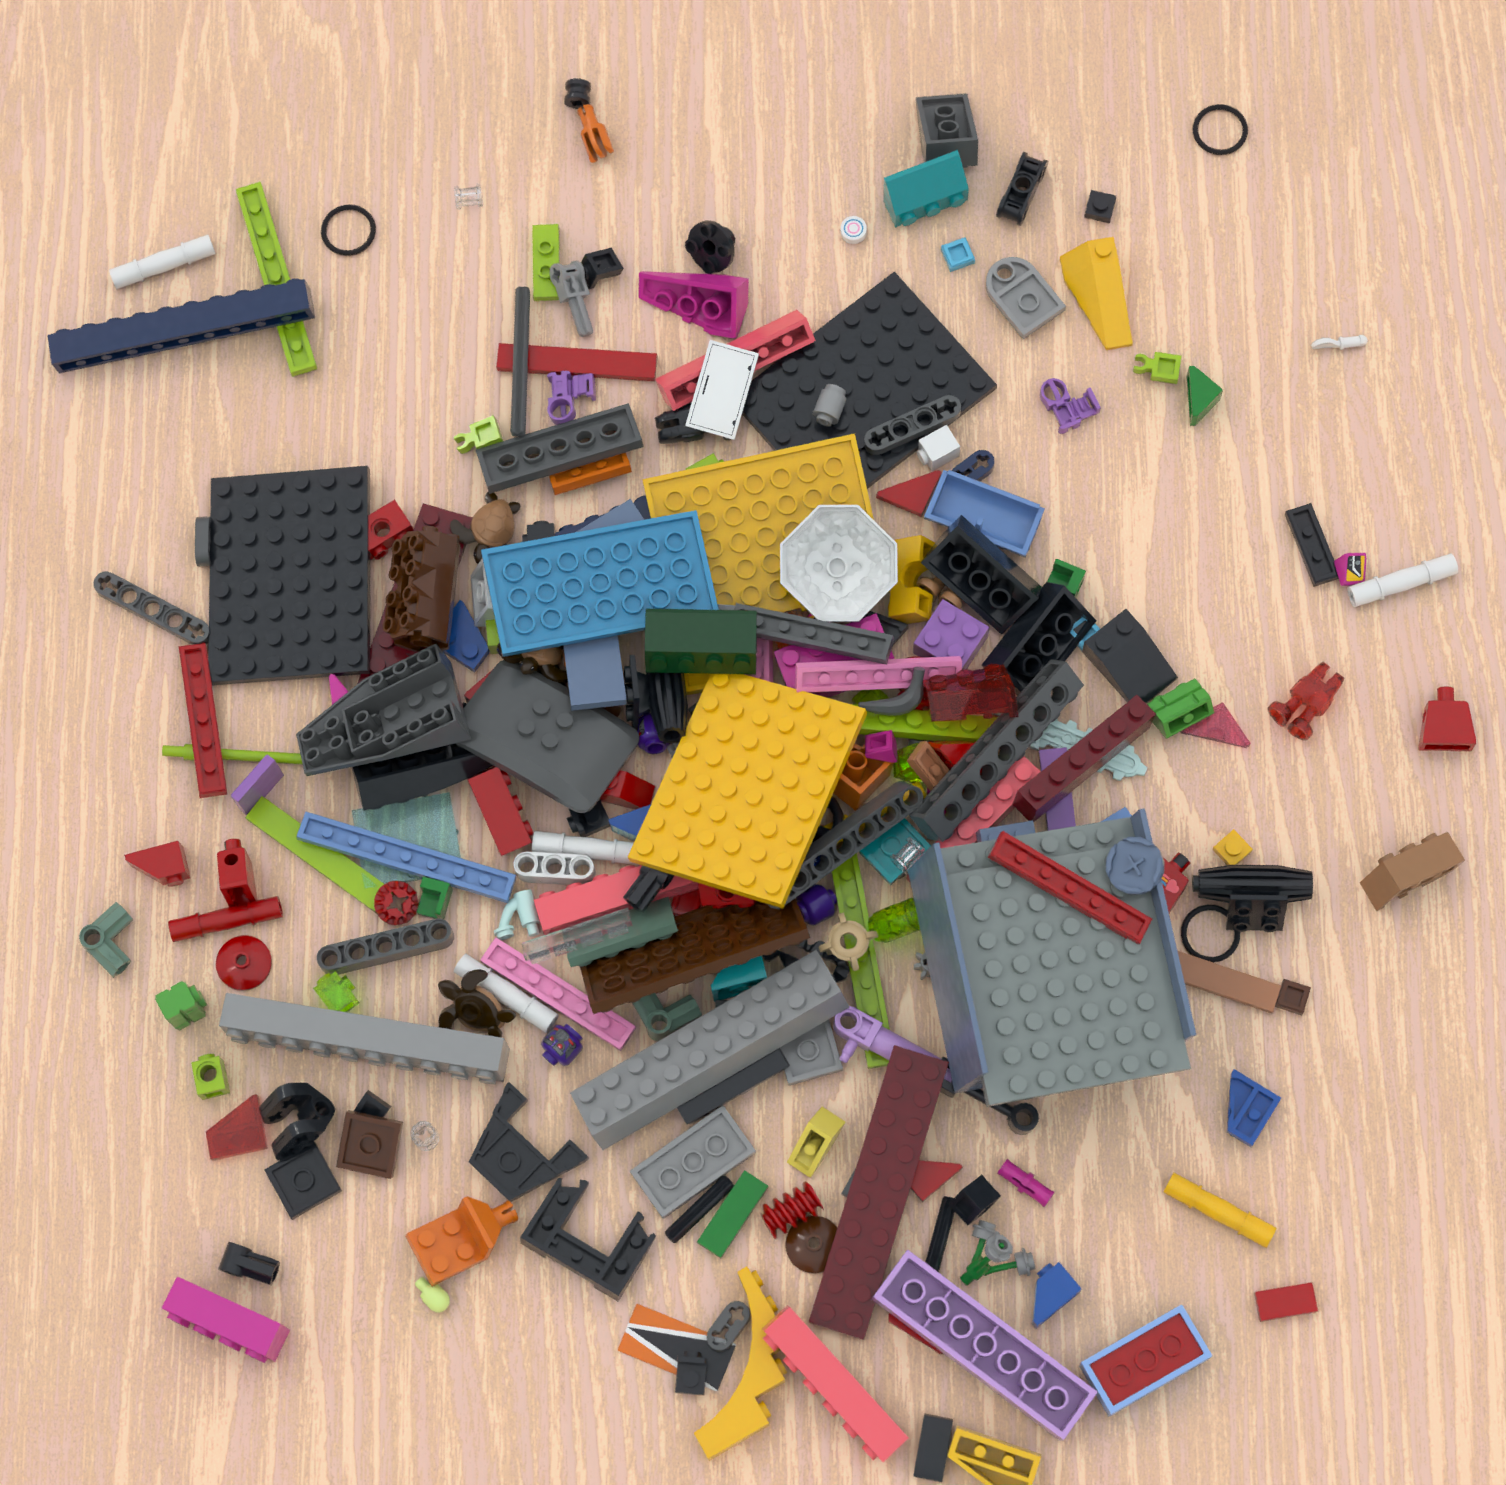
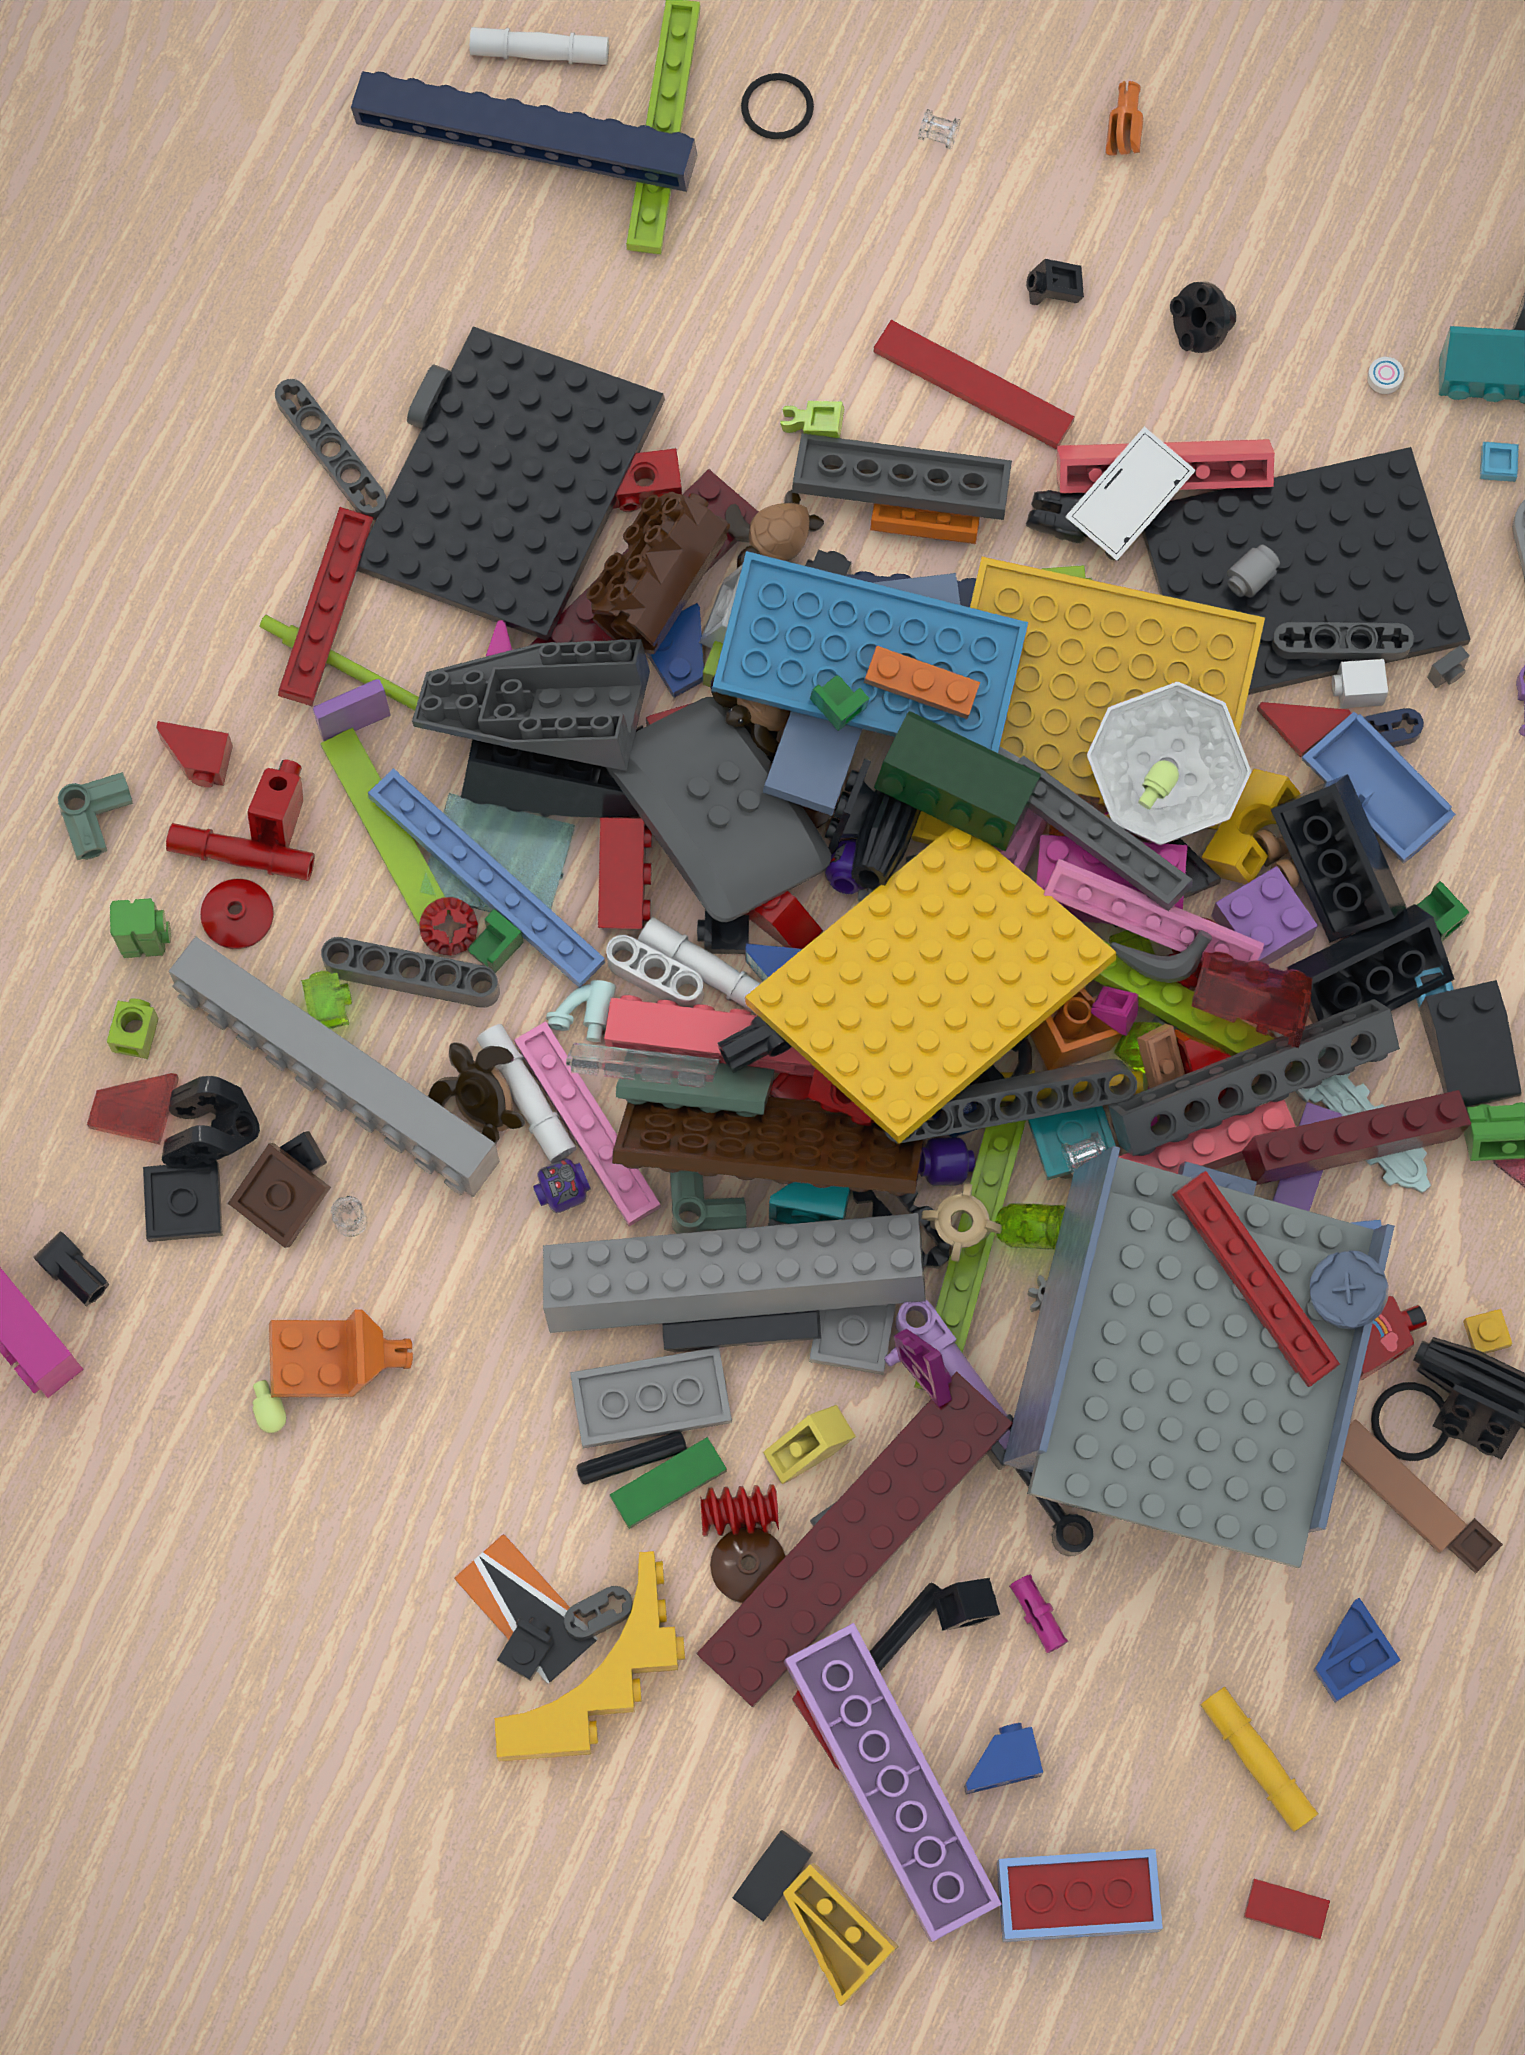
camera: 20 degrees right, 0 degrees up
(510, 1159) = (436, 1292): black wing -> none
(520, 361) = (905, 352): dark grey axle -> none
(545, 254) = (994, 249): lime plate -> none
(547, 1238) = (435, 1407): black wedge -> none
(568, 388) = (948, 410): medium lavender piece -> none
(573, 289) = (1011, 295): light grey connector -> none
(577, 93) = (1129, 63): black wheel -> none
(594, 624) = (839, 701): none -> green panel
(644, 584) = (921, 682): none -> orange plate
(704, 299) = (1164, 379): dark pink wedge -> none
(834, 1383) = (690, 1741): coral brick -> none
(838, 579) = (1158, 782): none -> yellowish green cylinder
(871, 1050) = (925, 1365): none -> magenta wing
(931, 1176) = (928, 1551): red tile -> none
(992, 410) = (1449, 667): none -> dark grey plate
(996, 1250) = (962, 1675): light grey plant -> none

